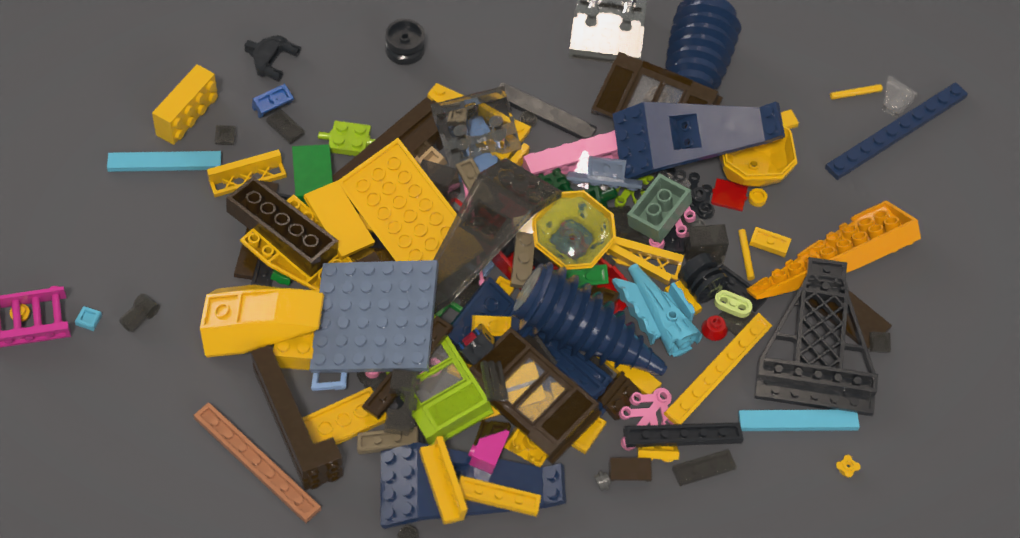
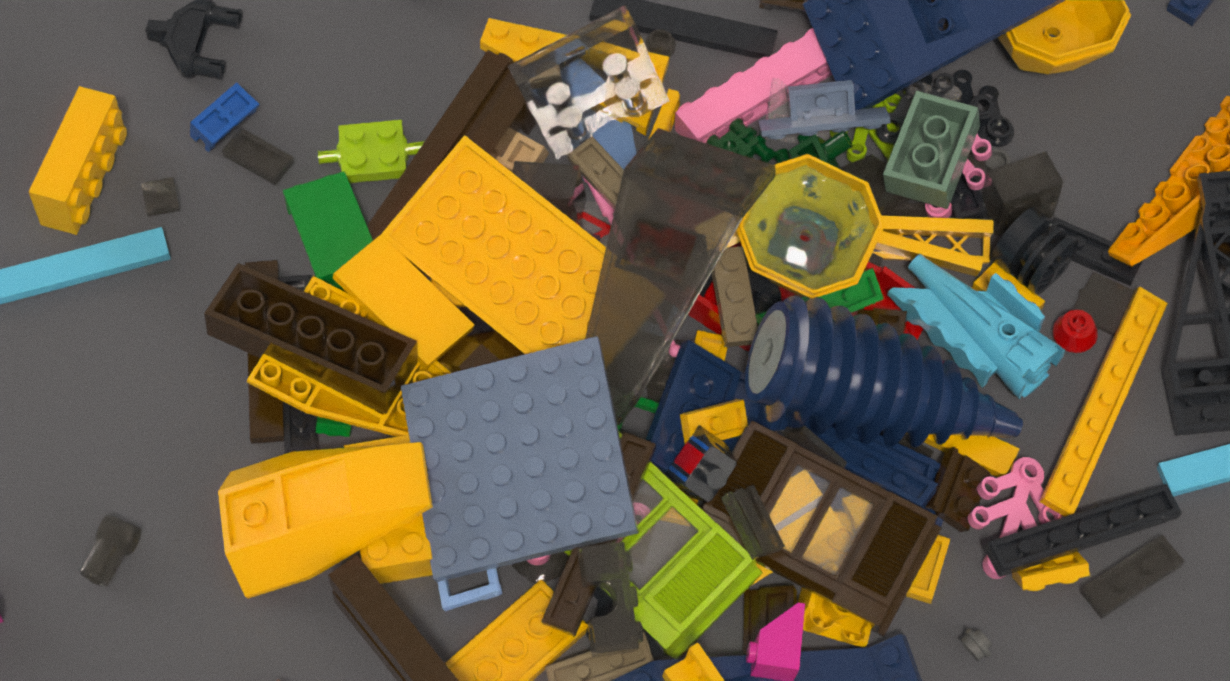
camera: 10 degrees left, 5 degrees up
(88, 318) = (24, 581): medium azure tile -> none
(245, 169) = (211, 247): yellow fence -> none
(630, 469) = (1015, 613): dark brown hinge -> none
(729, 194) = (1027, 94): red piece -> none
(733, 303) = (1092, 281): yellowish green plate -> none
(746, 254) = (1087, 191): yellow bar -> none
(757, 197) = (1075, 87): yellow tile -> none
(770, 242) = (1120, 159): yellow plate -> none

